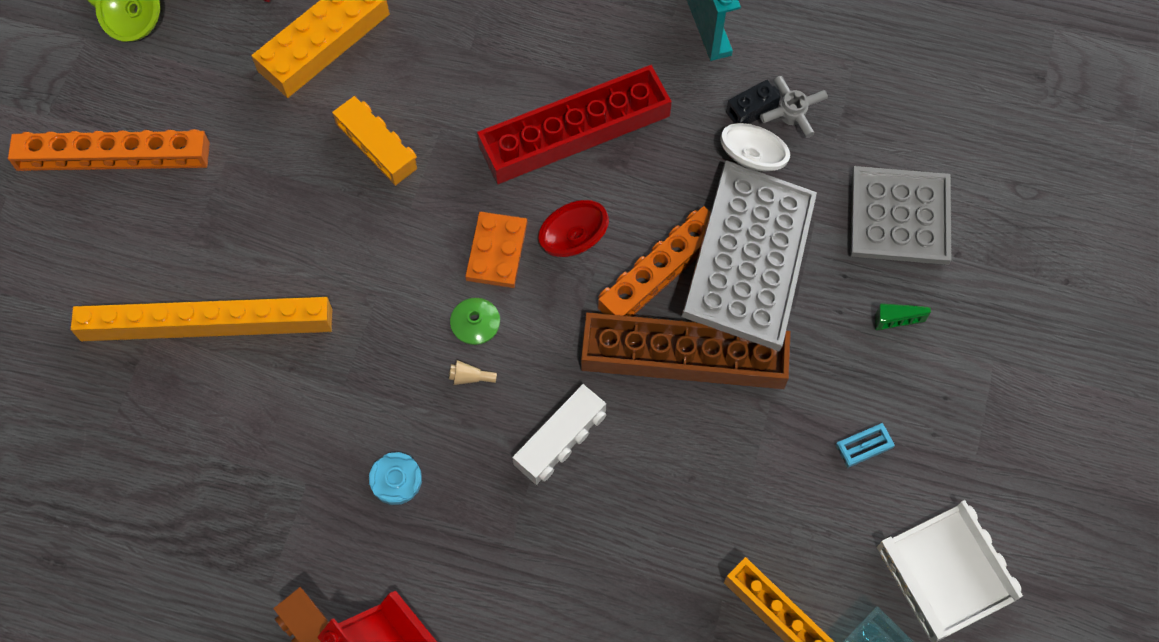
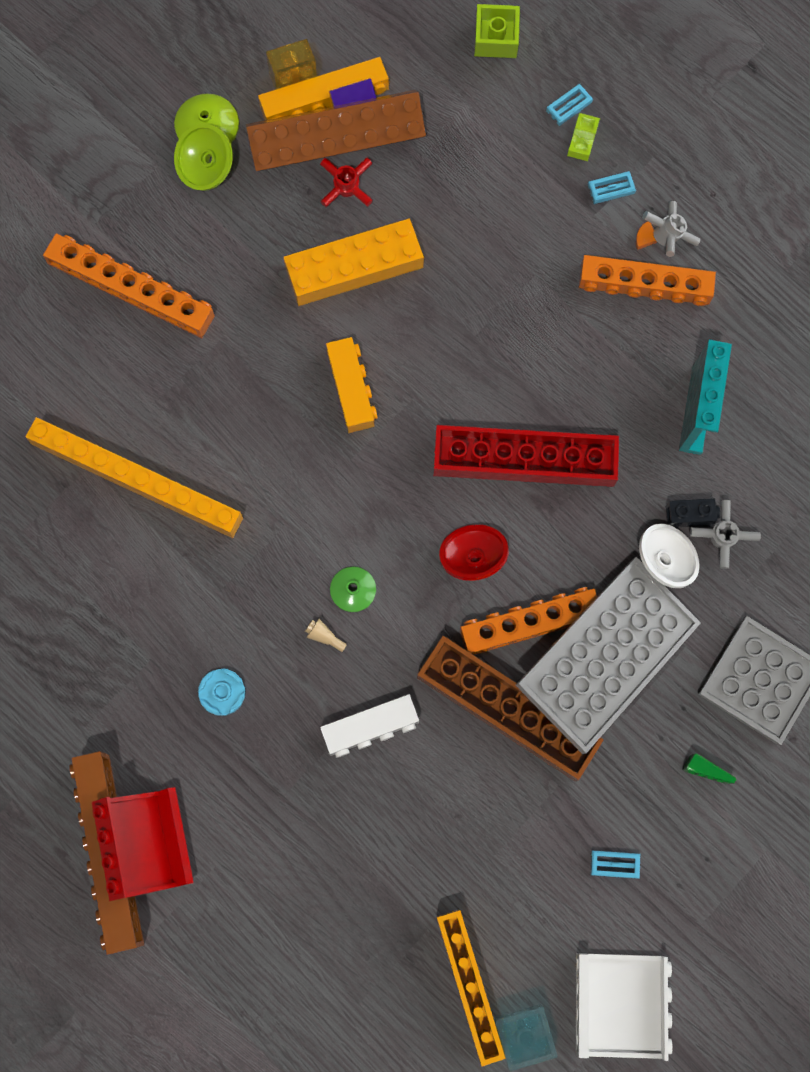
camera: 25 degrees right, 10 degrees up
(496, 249) = (402, 535): orange plate -> none

